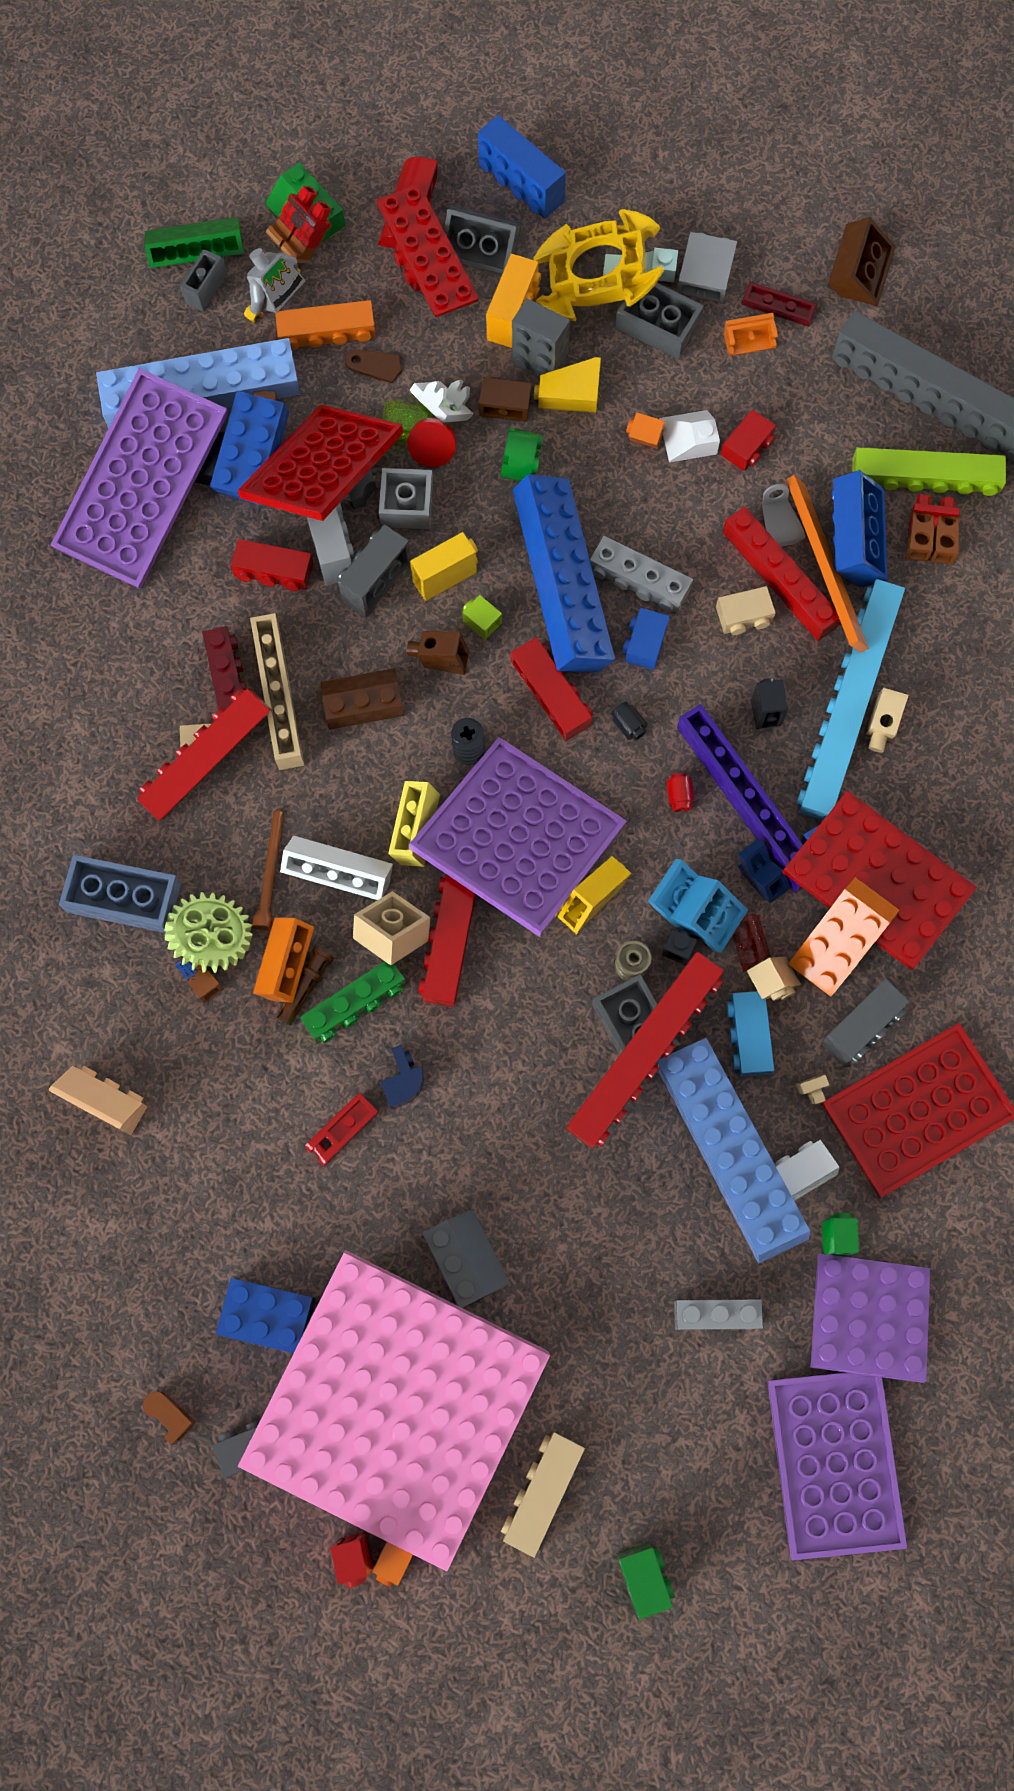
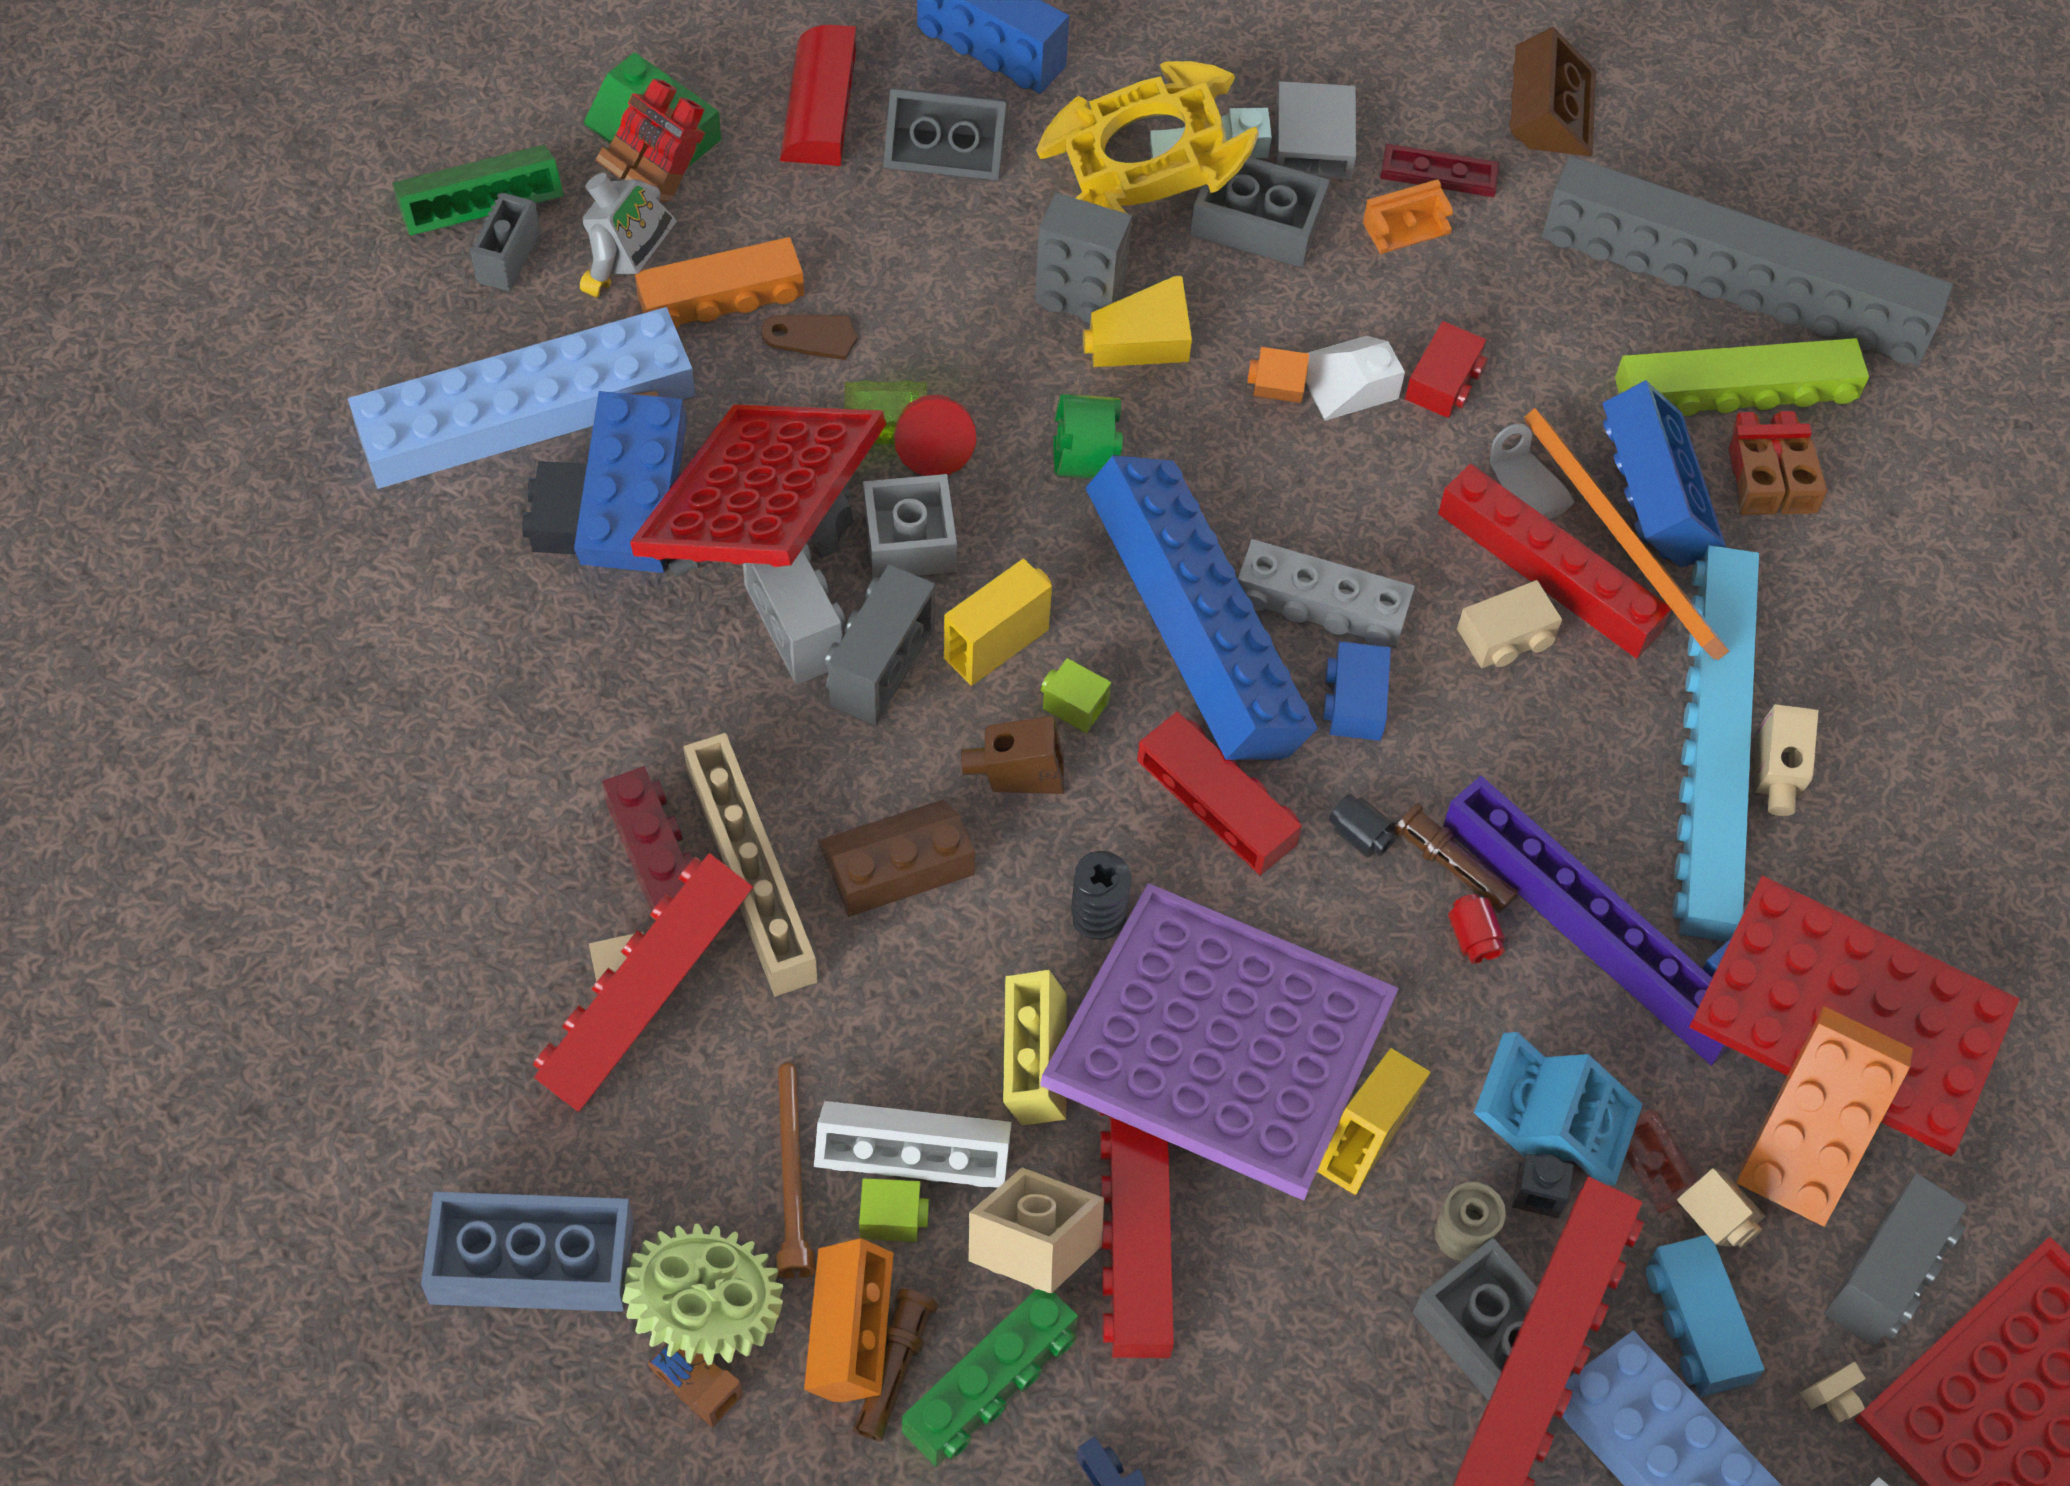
camera: 15 degrees left, 15 degrees down
(139, 478) = (449, 555): medium lavender plate -> none
(272, 565) = (700, 662): red brick -> none
(319, 902) = (892, 1210): none -> lime brick
(426, 251) = (865, 158): red bracket -> none
(440, 399) = (942, 371): white piece -> none
(505, 399) = (1040, 357): reddish brown brick -> none
(517, 283) = (1019, 208): light orange brick -> none
(671, 739) = (1439, 845): none -> reddish brown pin
(762, 872) = (1649, 1040): dark blue brick -> none
(769, 703) = (1591, 761): black brick -> none

